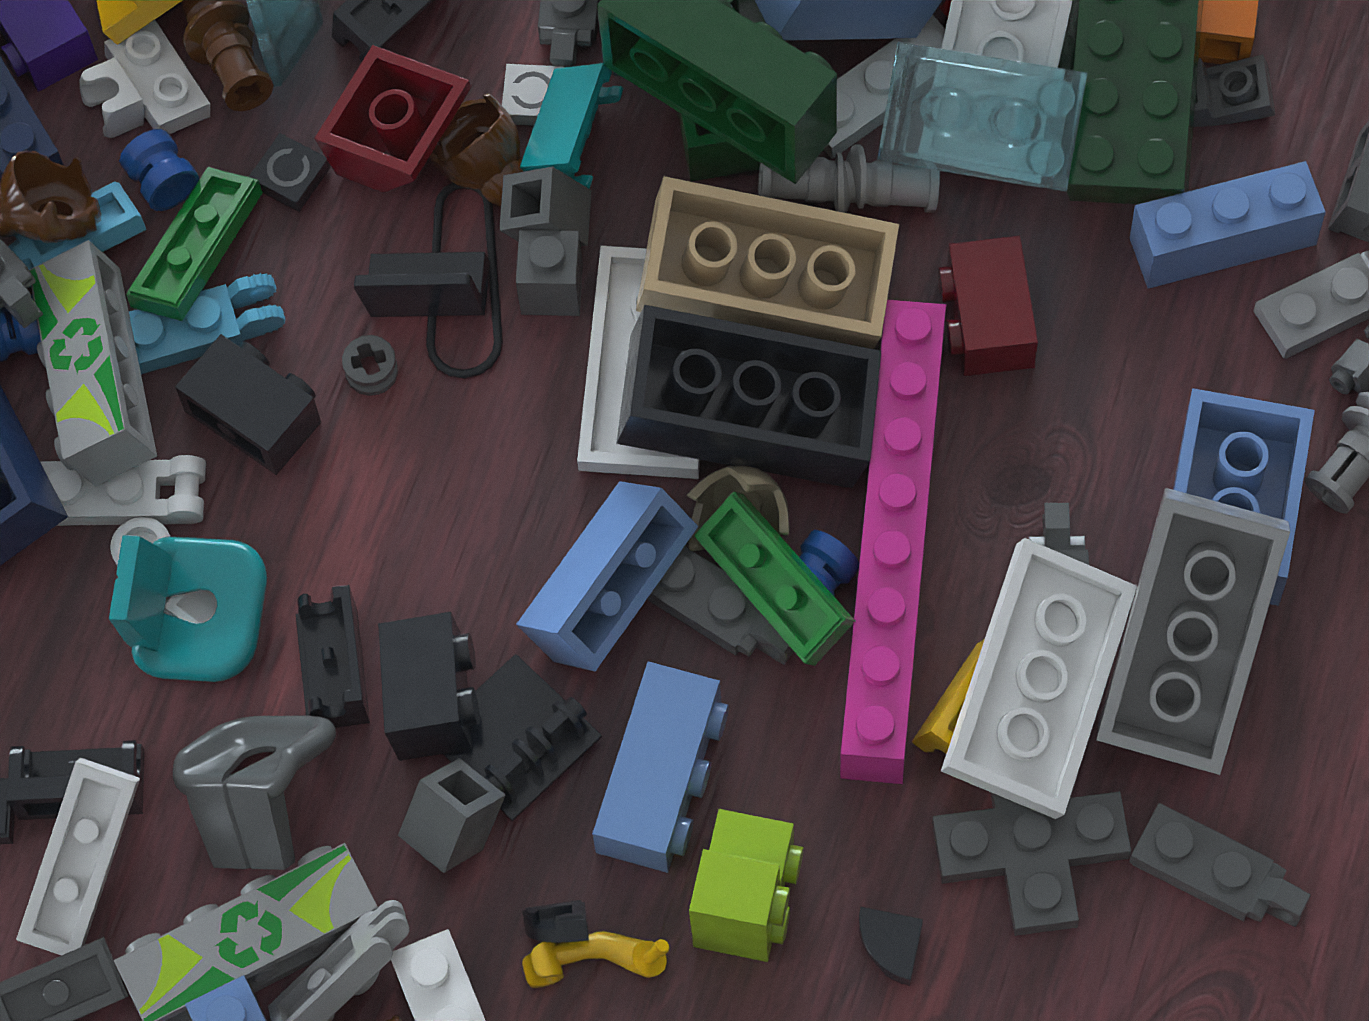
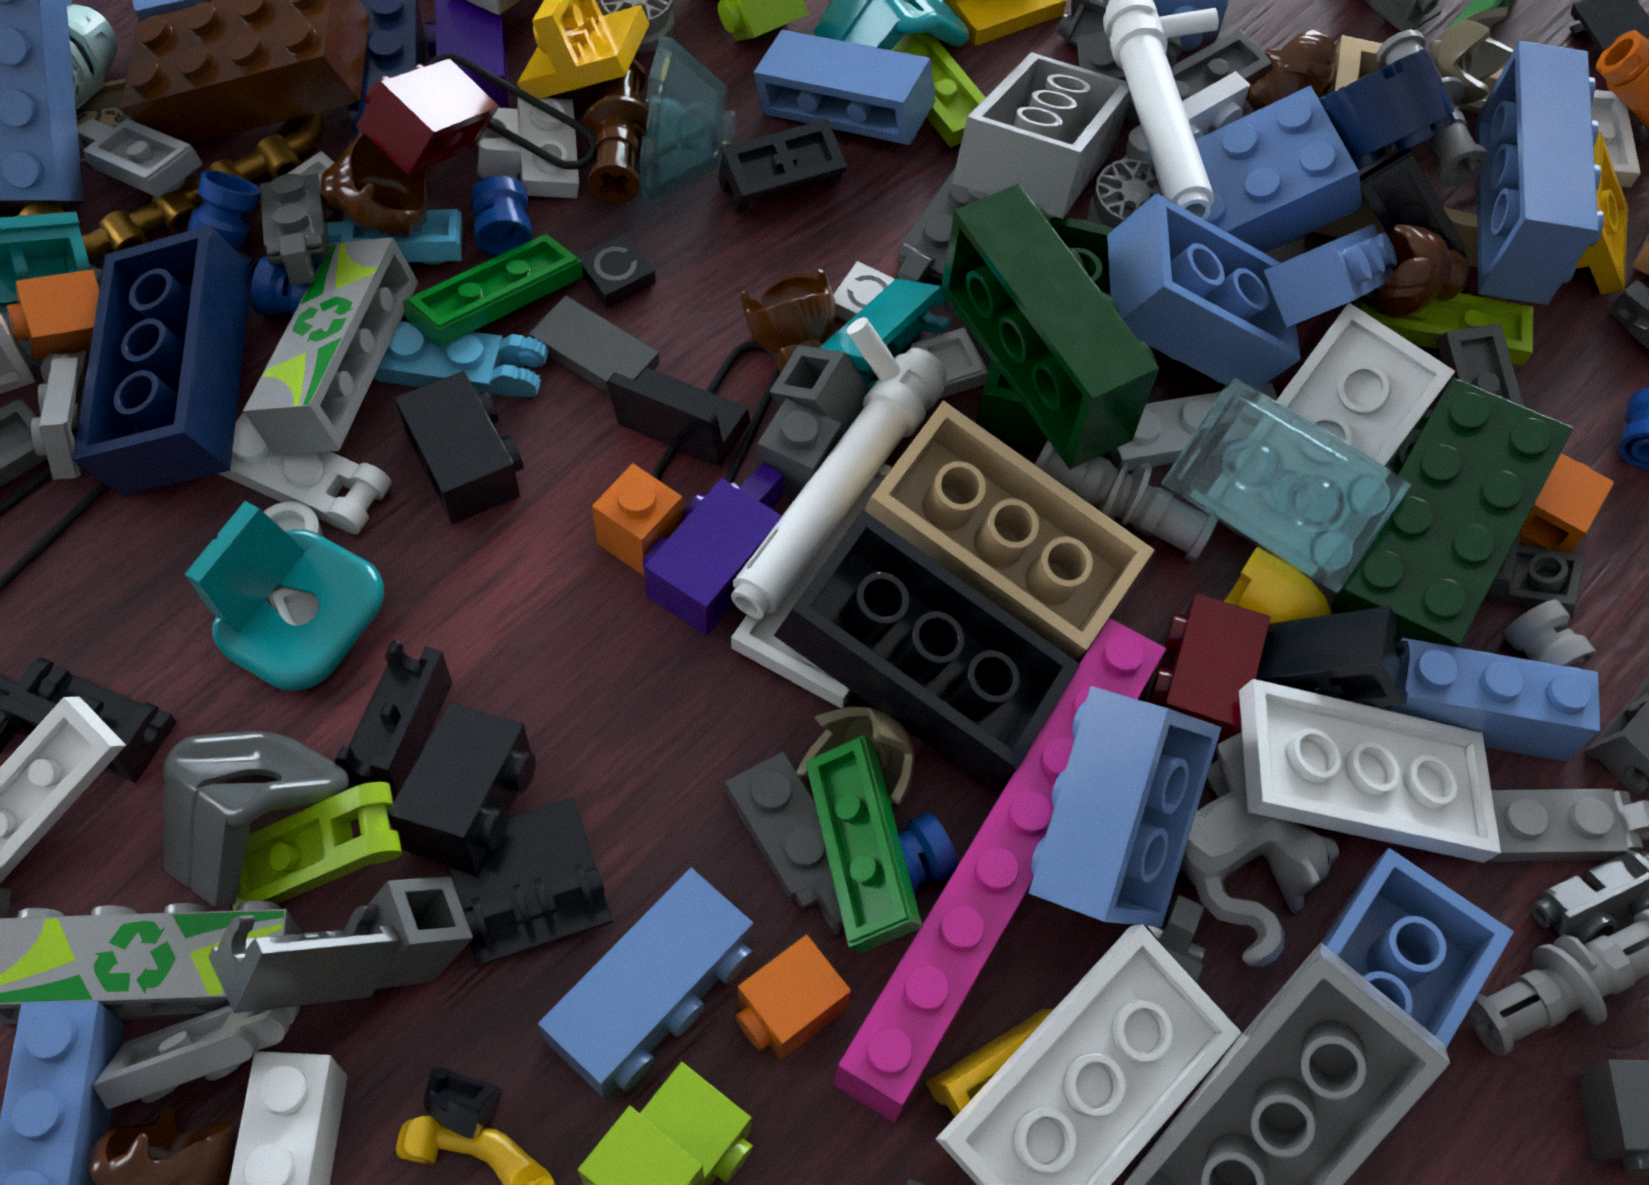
camera: 15 degrees right, 5 degrees down
(54, 109) = (426, 115): none -> dark red brick
(109, 86) = (567, 165): none -> black piece
(311, 255) = (592, 344): none -> dark grey tile
(342, 782) = (319, 845): none -> lime plate
(356, 374) = (578, 451): dark grey bush -> none
(389, 119) = (720, 252): dark red slope -> none
(391, 873) = (303, 966): none -> dark grey hinge
(444, 396) = (635, 515): none -> orange brick
(524, 391) = (717, 536): none -> dark purple hinge
(607, 575) = (699, 761): medium blue brick -> none
(614, 200) = (890, 412): none -> white cylinder
(636, 124) = (960, 359): none -> white tile
(777, 726) = (791, 999): none -> orange brick
(970, 454) = (1123, 809): none -> medium blue brick
(1025, 211) = (1277, 590): none -> yellow brick
(1069, 425) = (1230, 836): none -> light grey animal
(1088, 252) = (1339, 657): none -> black hinge
(1152, 331) = (1366, 772): none -> white plate
(1258, 145) = (1546, 637): none -> light grey wheel

